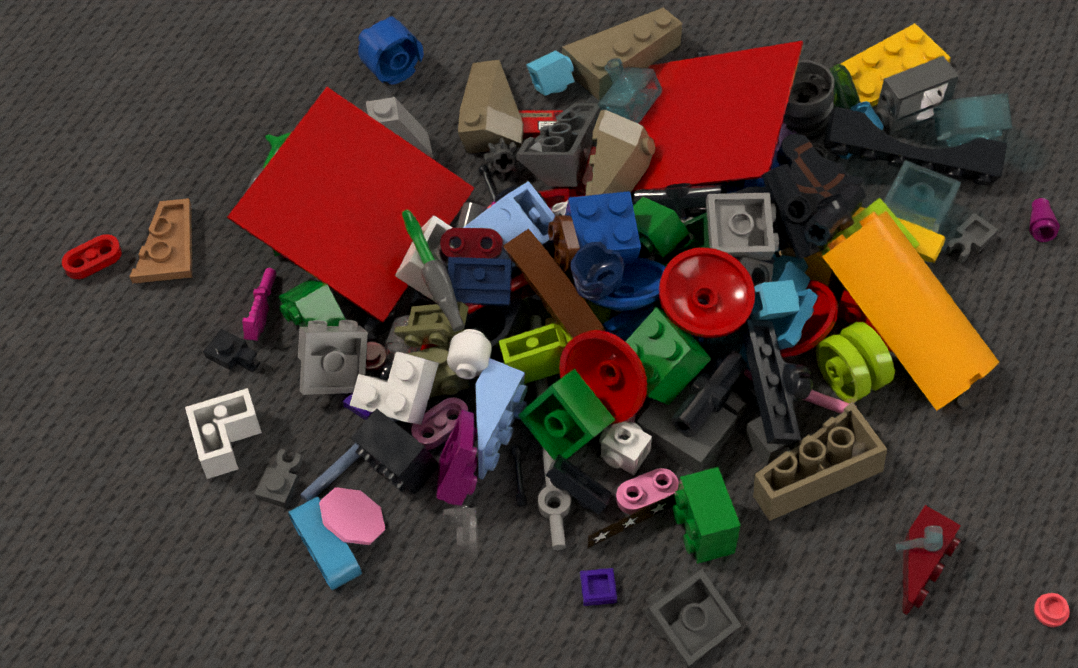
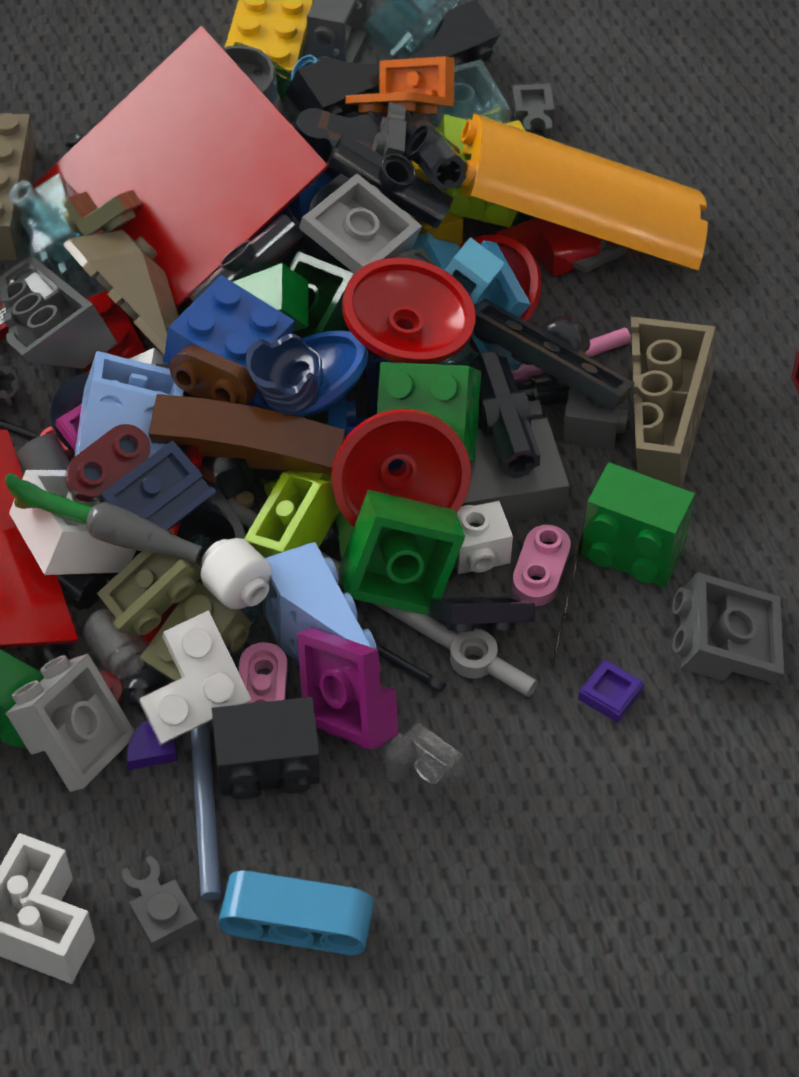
camera: 50 degrees left, 5 degrees down
(352, 516) = (294, 856): bright pink piece -> none
(643, 106) = (85, 216): none -> olive bracket
(819, 190) = (392, 132): none -> dark grey plate
(855, 362) = (589, 280): lime wheel -> none
(891, 169) = (413, 83): none -> orange bracket
(1043, 221) = (574, 50): magenta cone -> none

